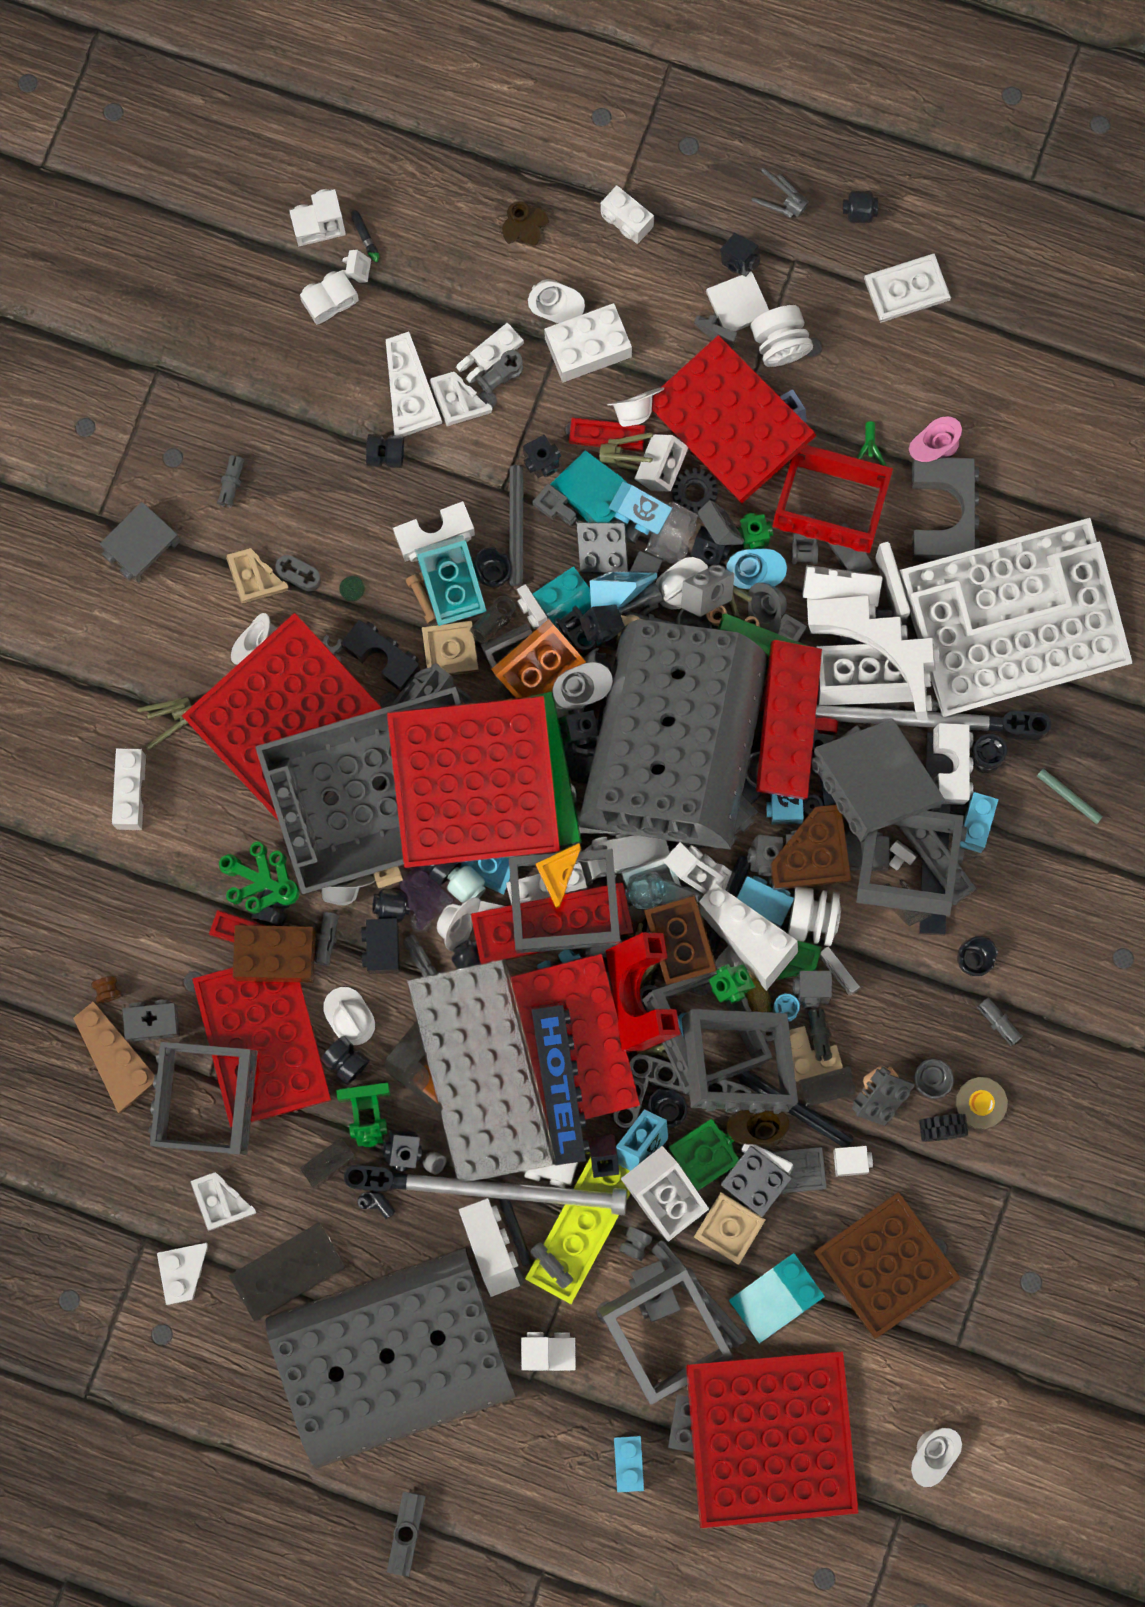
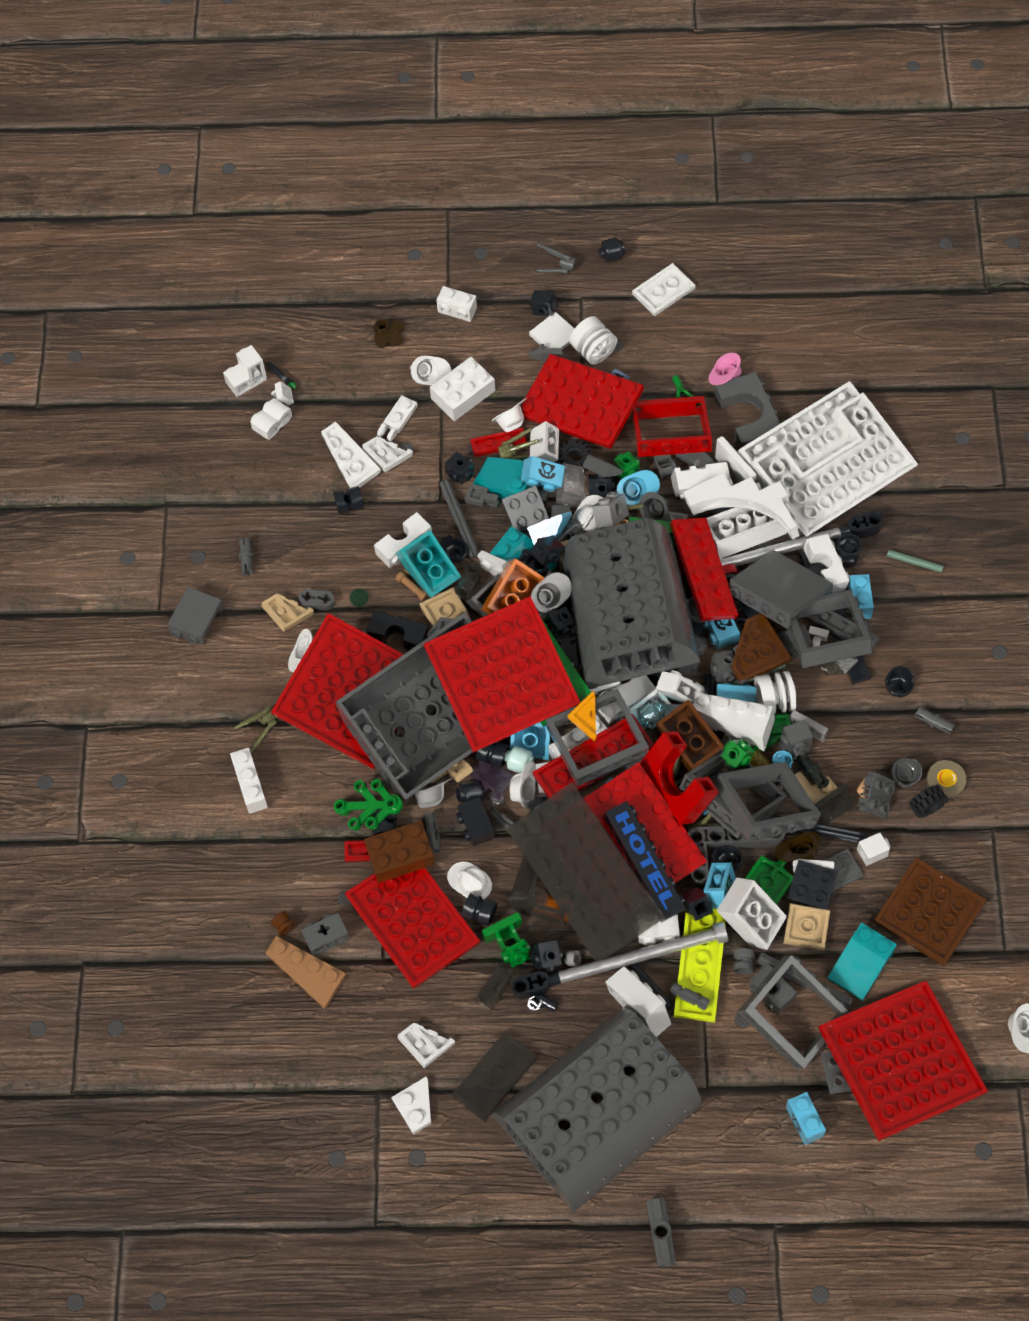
camera: 20 degrees left, 15 degrees down
(243, 1100) = (351, 974): dark grey window -> none
(501, 371) = (411, 425): dark grey connector -> none
(547, 1353) = (712, 1060): white brick -> none

